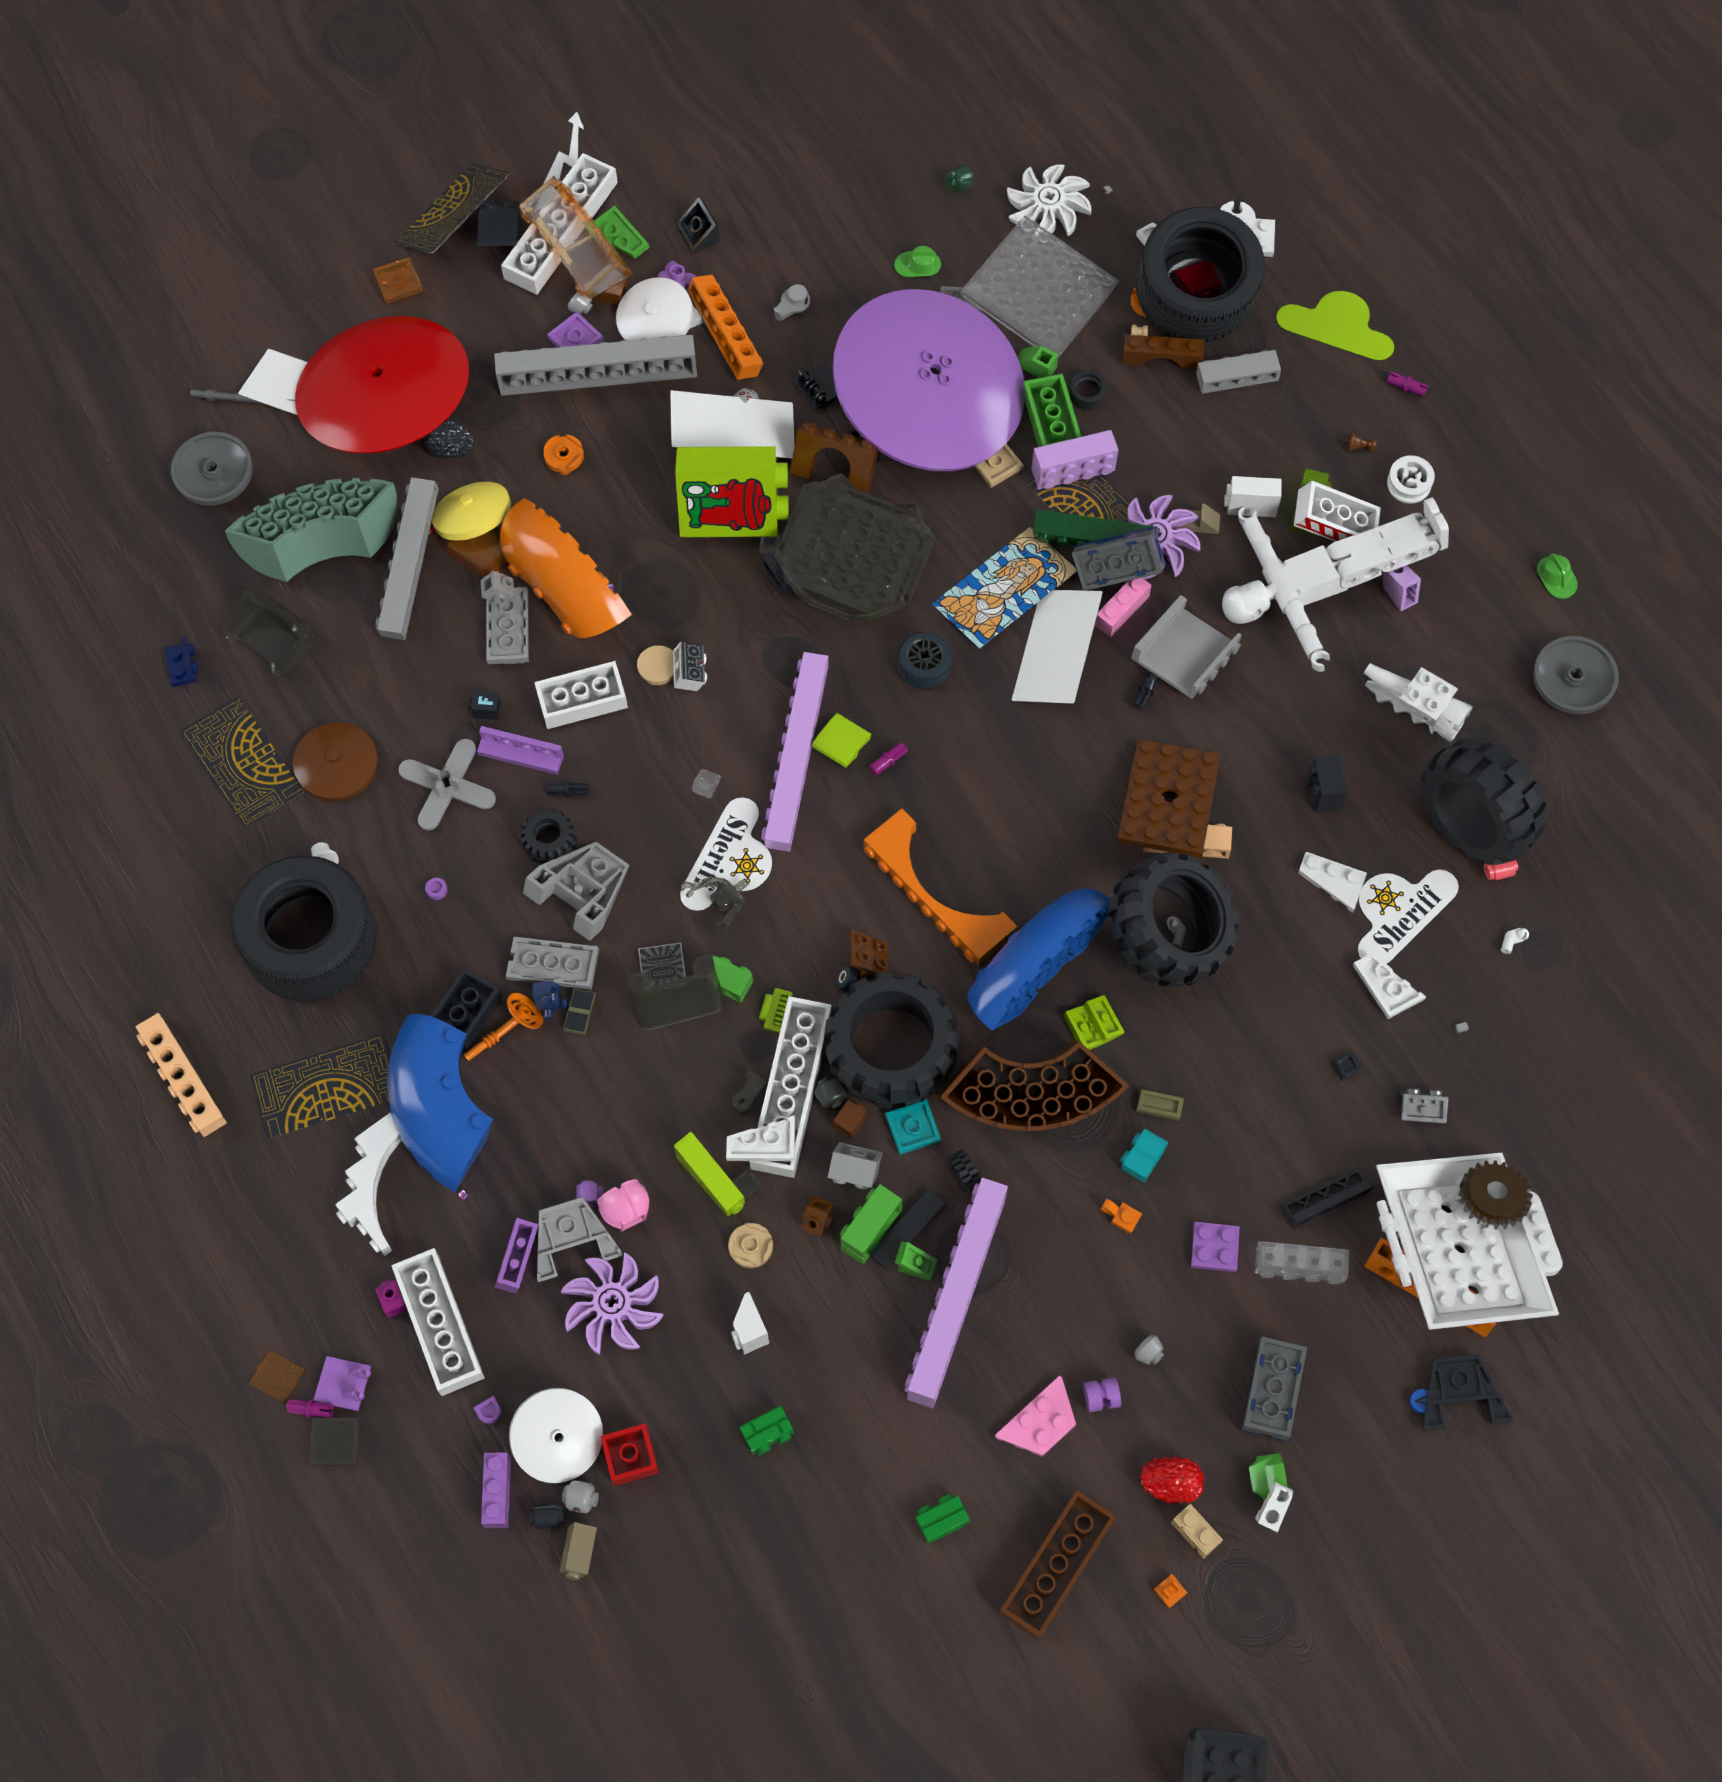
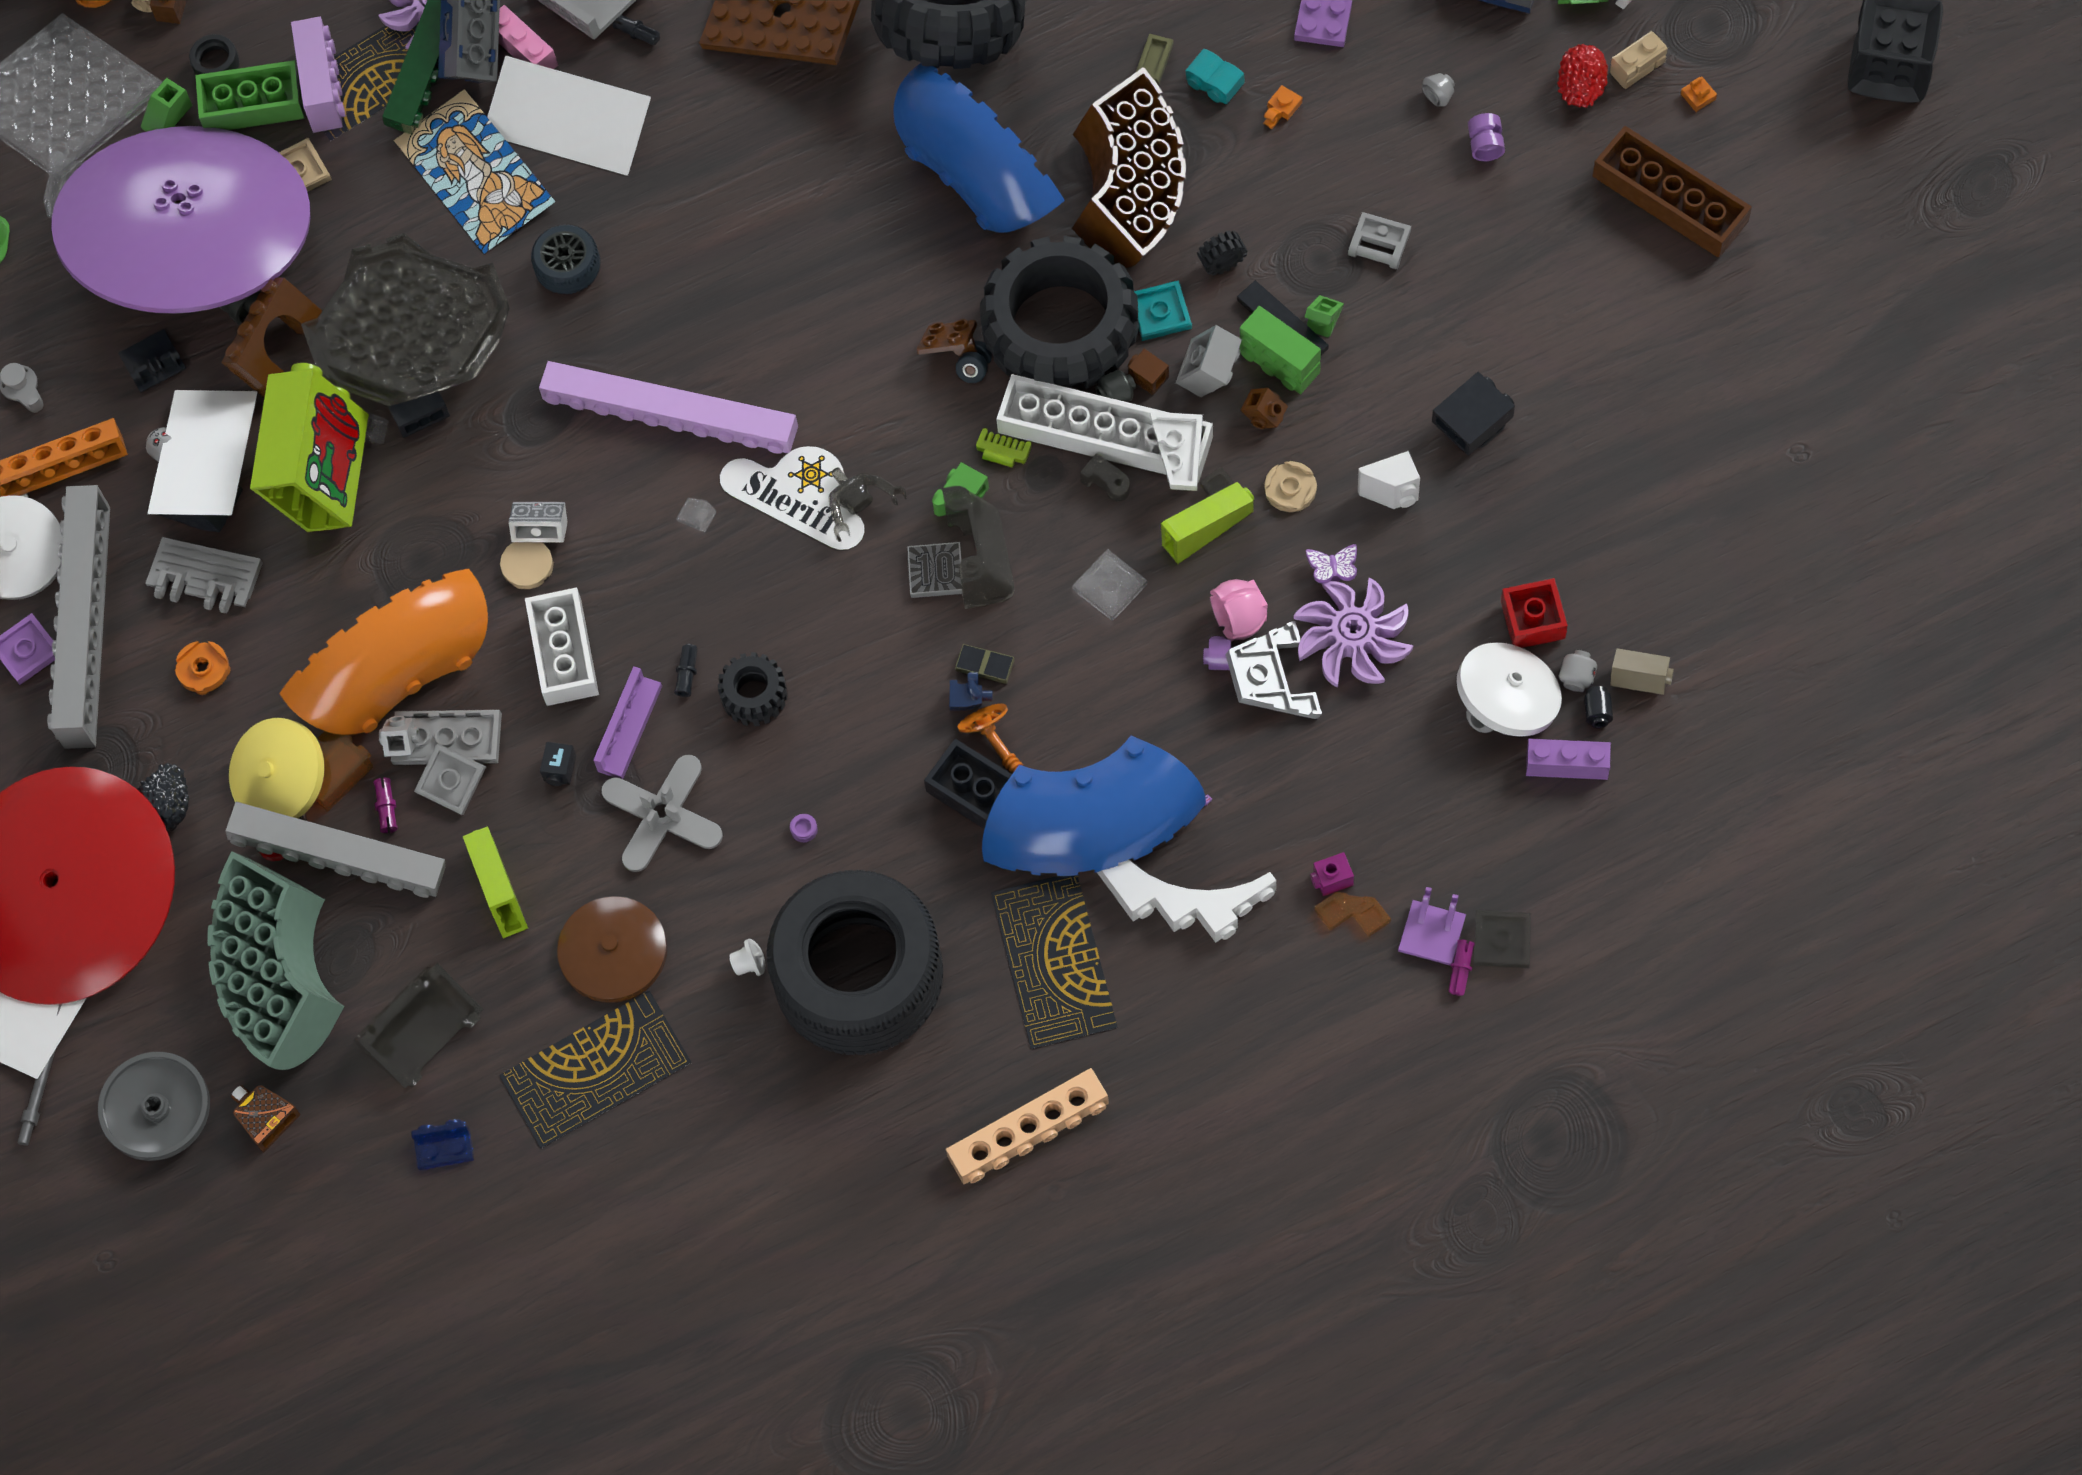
camera: 80 degrees left, 0 degrees up
(206, 540) = (263, 1114): none -> torso
(276, 1376) = (1418, 1010): clear orange piece -> none
(365, 1327) = (1364, 909): none -> clear orange tile
(385, 670) = (495, 882): none -> lime slope
(438, 1322) = (1367, 817): white brick -> none
(452, 591) = (385, 805): none -> magenta pin
(471, 631) = (450, 779): none -> light grey tile
(488, 1411) = (1471, 771): medium lavender tile -> none
(516, 1256) = (1291, 731): medium lavender brick -> none
(547, 963) = (920, 690): light grey piece -> none
(583, 879) = (818, 647): light grey wedge -> none
(640, 447) = (204, 572): none -> light grey hinge
(653, 1104) = (1110, 584): none -> clear plate
(672, 1282) = (1333, 567): none -> medium lavender animal
(767, 1430) = (1510, 474): green brick -> none
(820, 1394) = (1474, 413): none -> black brick
(841, 740) = (659, 358): lime slope -> none
(888, 759) = (690, 309): magenta axle -> none
(942, 1518) = (1616, 303): green brick -> none
(958, 1289) = (1365, 267): lavender brick -> none
(975, 934) = (813, 309): orange arch -> none
(999, 1310) = (1381, 233): none -> light grey plate
(1041, 1421) = (1509, 201): bright pink wing -> none
(1093, 1023) = (1050, 117): lime slope -> none

